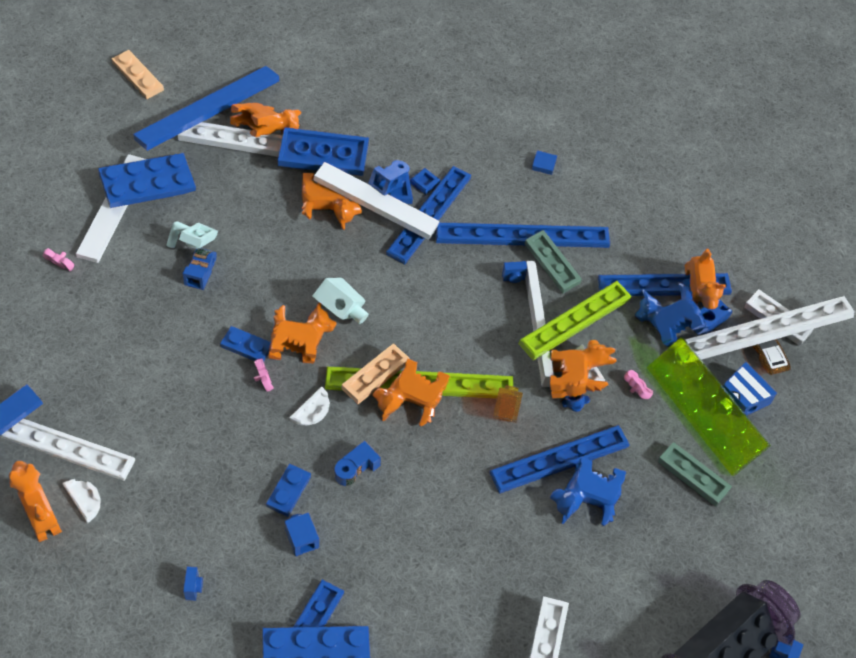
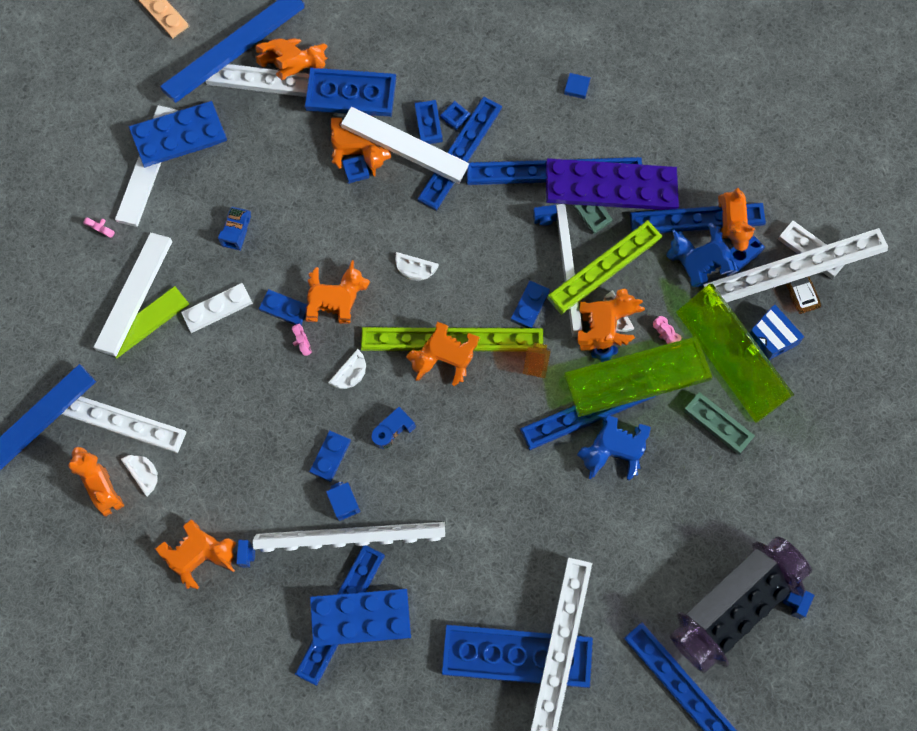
camera: 10 degrees right, 15 degrees up
(88, 324) = (133, 294): none -> white tile
(99, 351) = (153, 317): none -> lime tile
(137, 578) = (195, 550): none -> orange animal
(175, 341) = (216, 307): none -> white plate
(194, 236) = (225, 196): light aqua plate -> none
(296, 571) = (339, 537): none -> white plate
(325, 221) = (355, 169): none -> blue plate
(341, 299) = (373, 257): light aqua torso -> none
(375, 373) = (408, 335): light nougat plate -> none
(382, 314) = (415, 268): none -> white tile
(390, 178) = (418, 120): blue leg -> none
(499, 354) = (530, 305): none -> blue plate
(580, 247) = (611, 184): none -> dark purple plate
(610, 424) = (638, 376): none -> clear neon green plate

